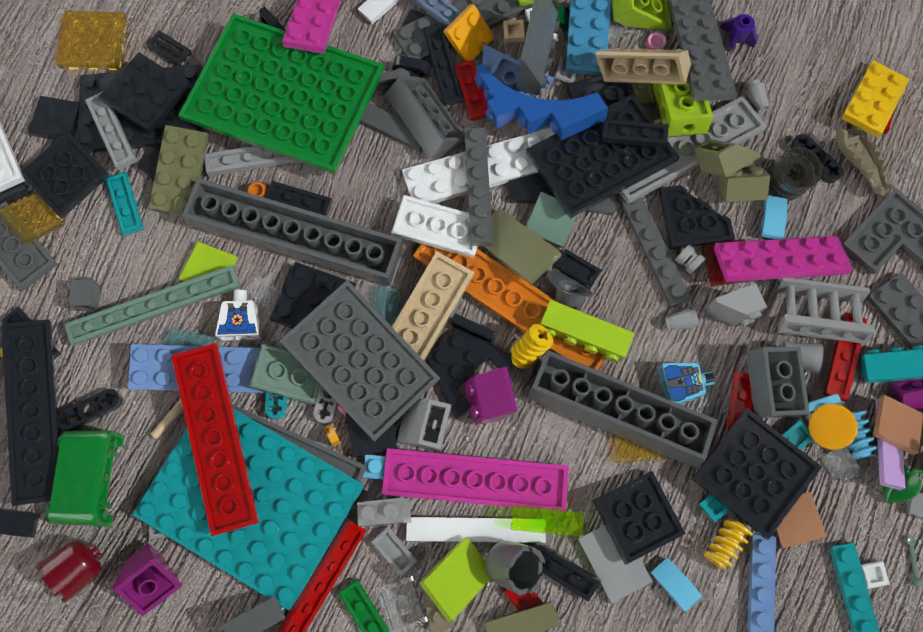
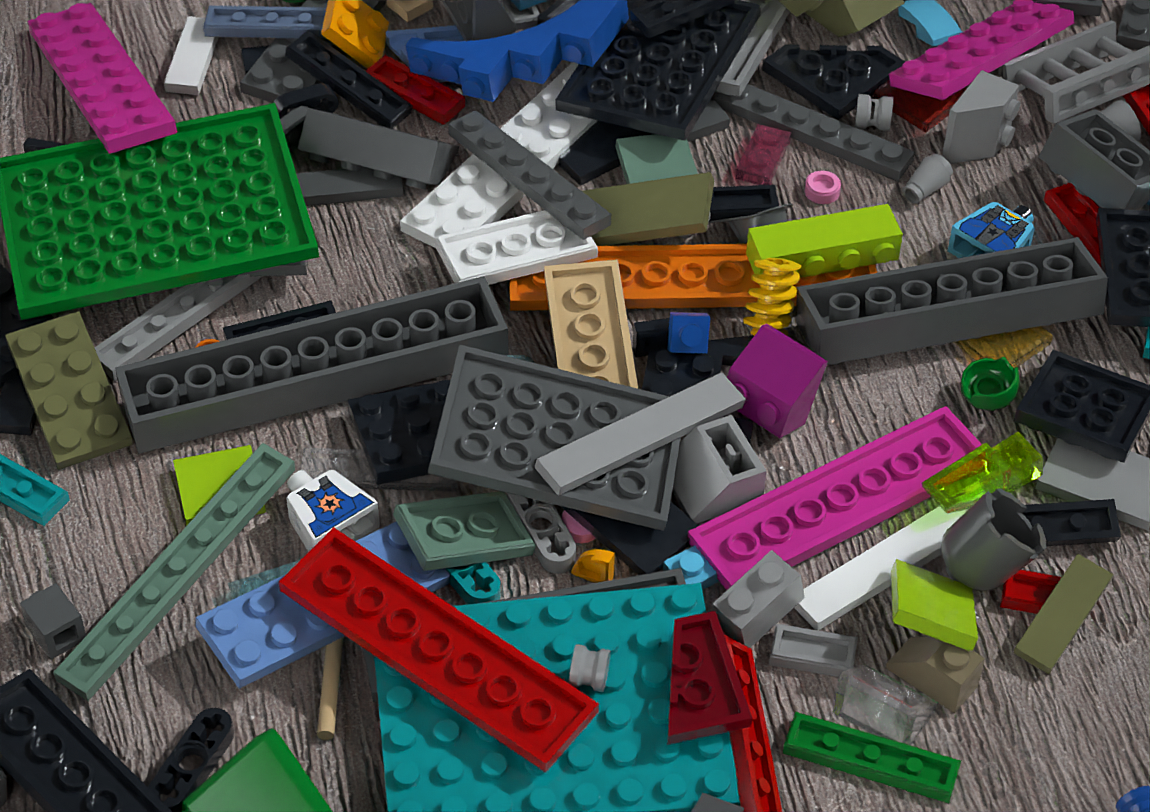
camera: 35 degrees left, 25 degrees down
(269, 500) = (589, 668): none -> light grey wheel
(314, 545) = (704, 682): none -> dark red wing
(398, 386) = (638, 433): none -> light grey tile
(476, 337) = (688, 332): none -> blue plate
(602, 468) = (990, 383): none -> green hair
(613, 246) = (763, 155): none -> clear pink plate
(626, 286) = (822, 187): none -> bright pink tile

